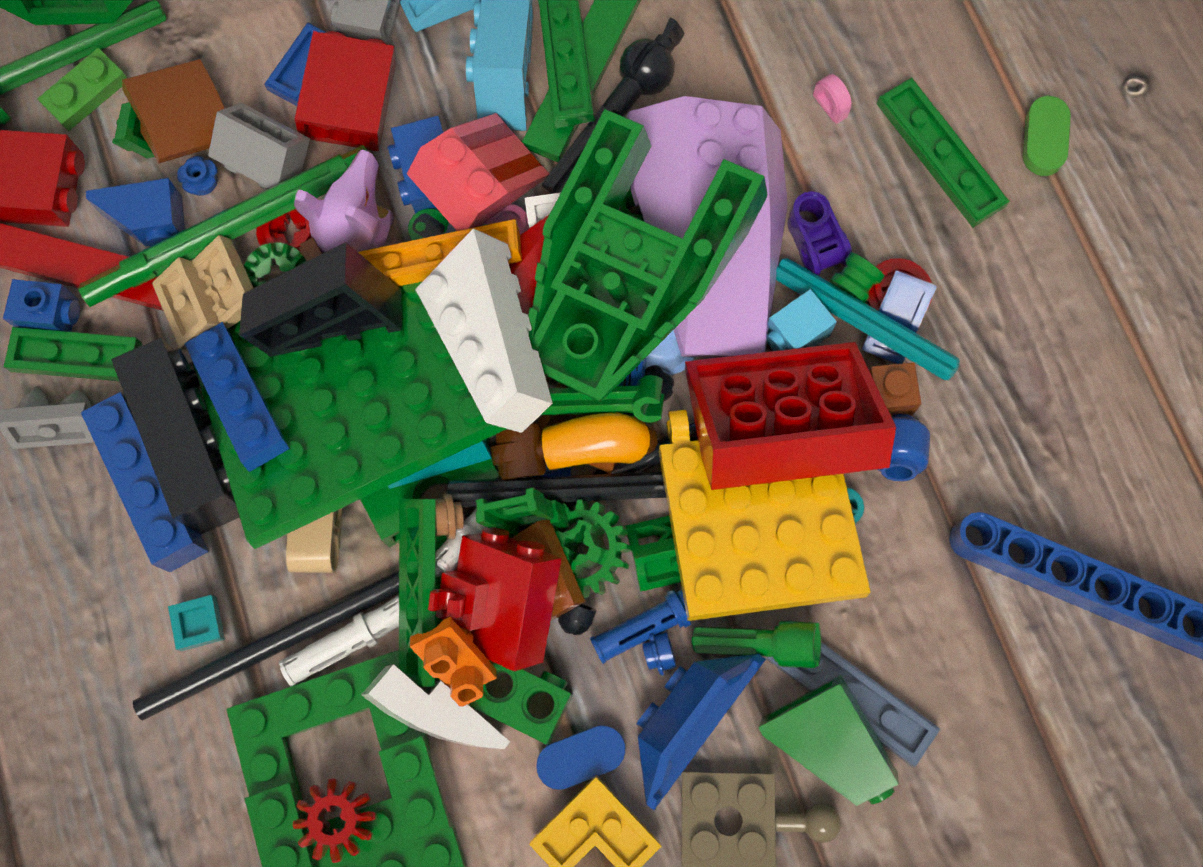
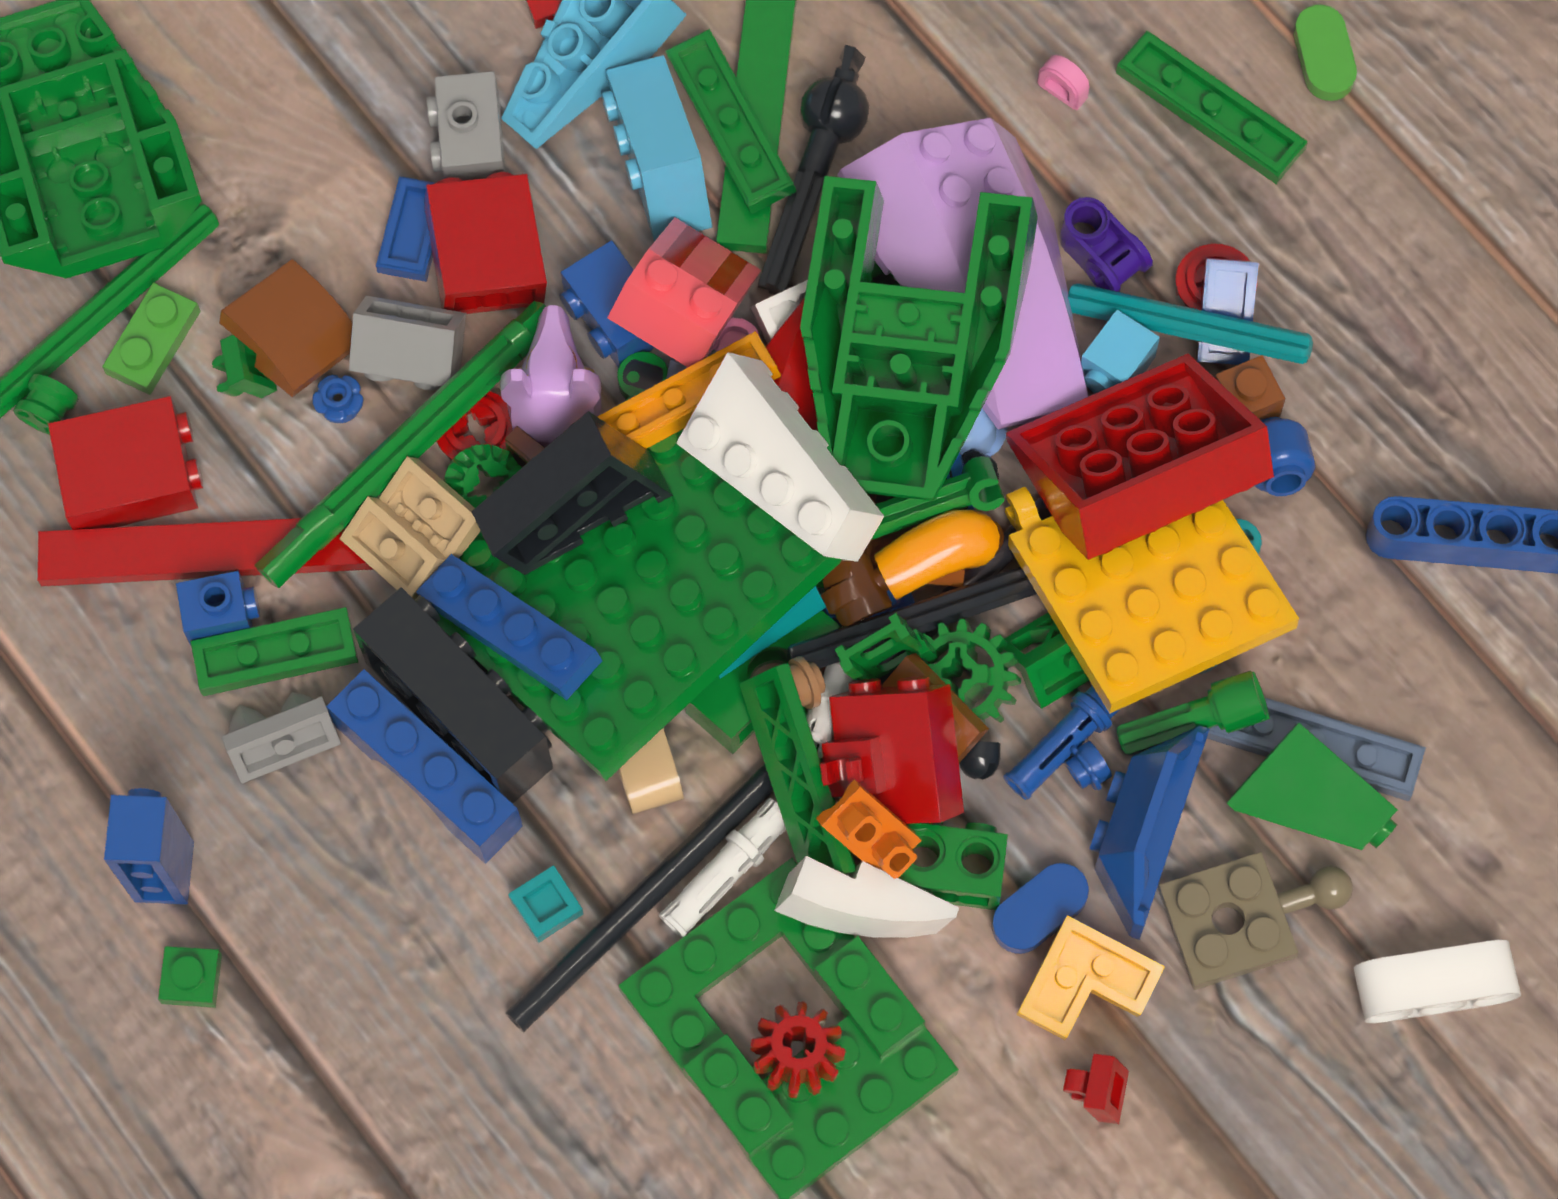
camera: 20 degrees left, 5 degrees down
(143, 209) = (290, 460): blue slope -> none
(857, 277) = (1165, 279): green wheel -> none

